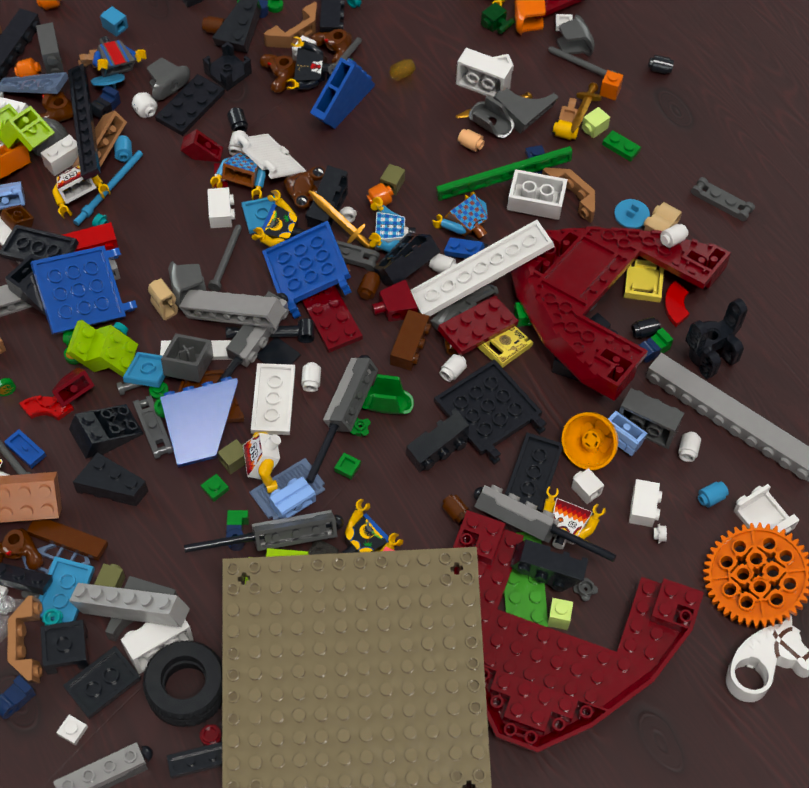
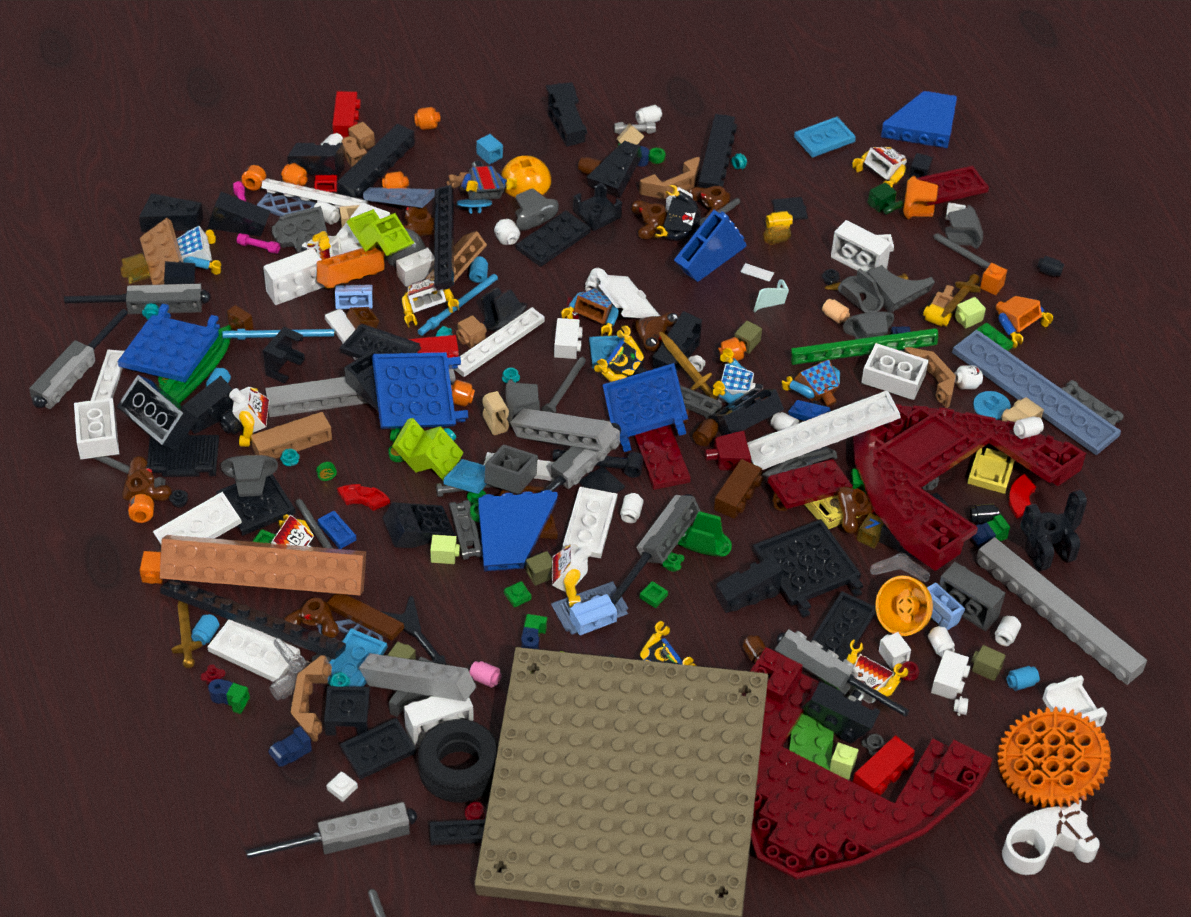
camera: 10 degrees right, 10 degrees down
(49, 48) = (421, 164): dark grey brick -> none
(72, 386) = (393, 479): dark red slope -> none
(106, 102) = (470, 223): leg -> none
(111, 481) = (416, 570): black wedge -> none
(115, 540) = (413, 628): none -> black piece
(126, 215) = (470, 332): none -> medium nougat brick
(126, 281) = (462, 393): none -> orange head
(135, 452) = (444, 549): none -> yellowish green brick
(150, 187) = (500, 308): none -> black piece
(154, 221) = (499, 341): none -> white plate
(156, 41) = (529, 174): none -> light orange piece
(171, 252) = (510, 373): none -> teal plate
(196, 580) = (485, 673): none -> bright pink brick
(201, 147) = (557, 279): dark red slope -> none
(237, 119) = (599, 258): black brick -> none
(281, 532) = (576, 641): dark grey piece -> none
(389, 110) = (757, 272): none -> white sticker
(401, 53) = (779, 218): none -> yellow brick
(408, 134) = (772, 296): none -> light aqua piece
(409, 41) = (794, 206): none -> black piece
(453, 367) = (777, 521): white brick -> none
(459, 105) = (830, 276): none -> black plate
(505, 150) = (868, 324): none -> dark grey piece
(522, 340) = (853, 504): none -> reddish brown head
(543, 363) = (870, 530): none -> clear yellow brick
(577, 391) = (902, 562): none -> clear piece
(600, 613) = (885, 766): none -> red brick
(605, 502) = (913, 671): none -> dark red plate
(606, 189) = (968, 377): none -> white head
(629, 468) = (941, 640): none -> white brick
(641, 118) = (1020, 313): none -> orange torso
(661, 187) = (1023, 381): none -> sand blue plate
(677, 483) = (988, 662): none -> olive brick

